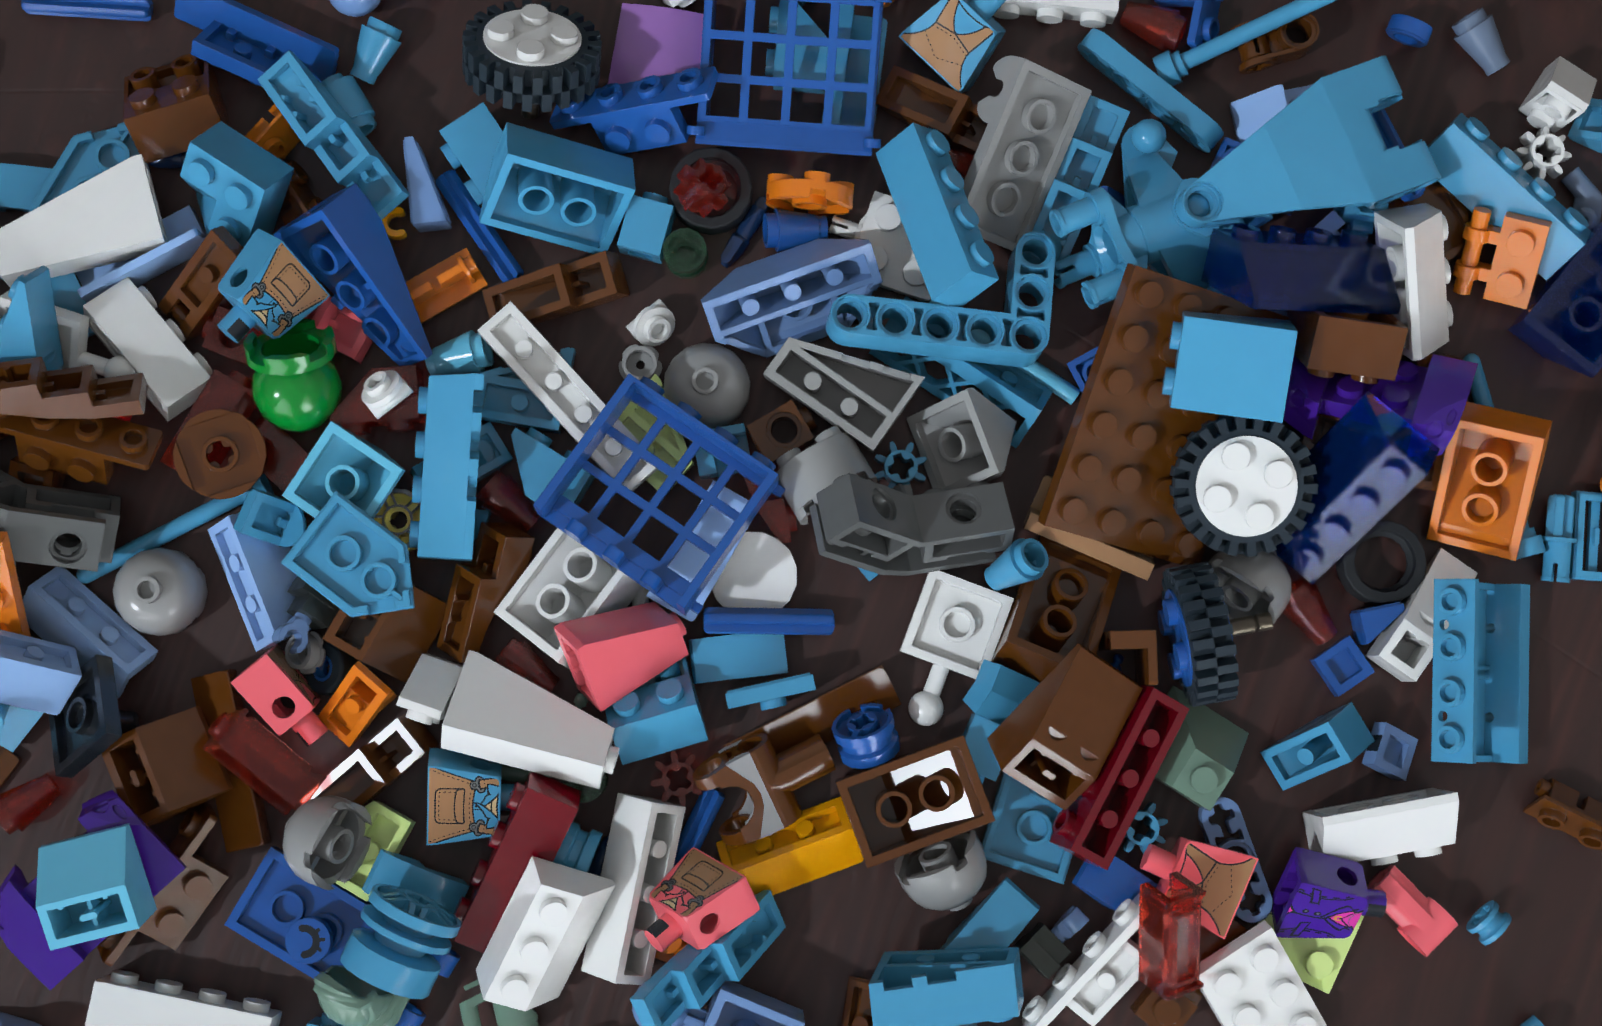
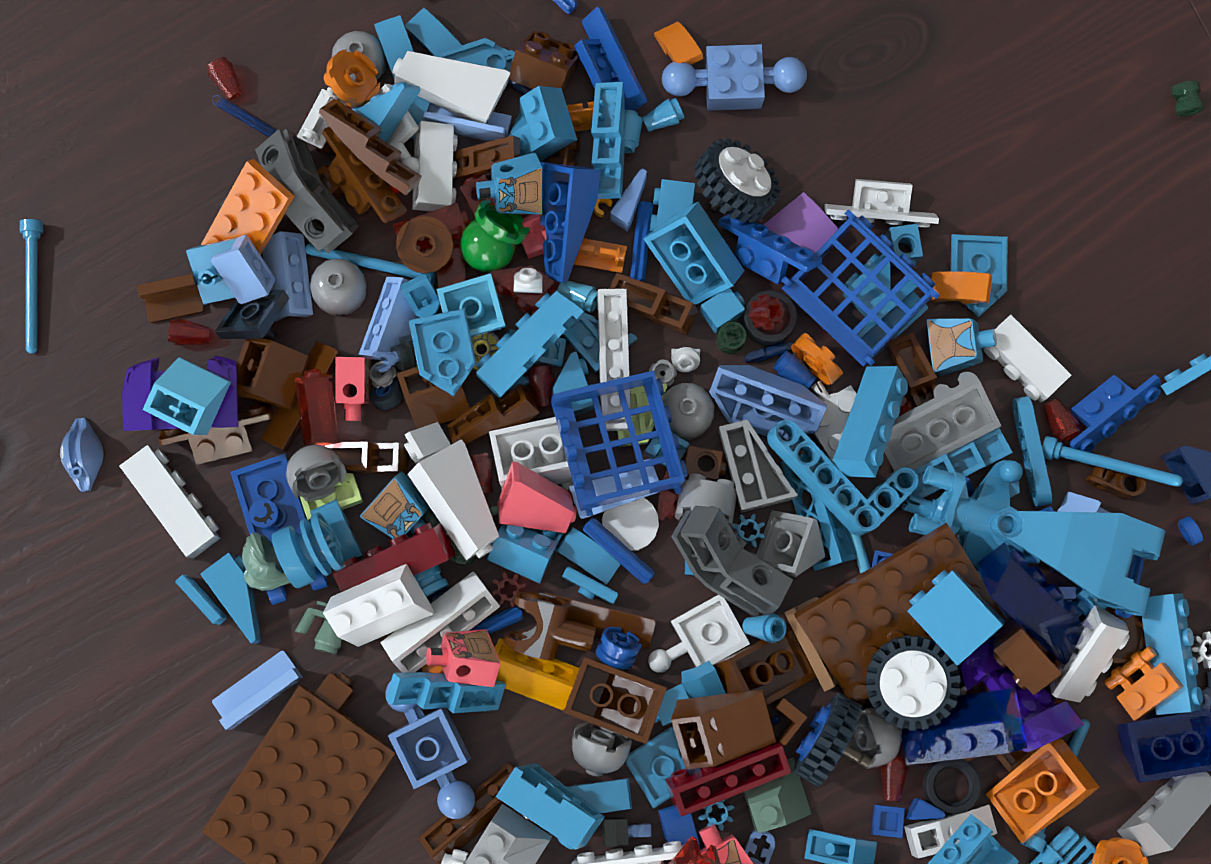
camera: 40 degrees right, 5 degrees down
(355, 704) = (384, 419): orange slope -> none

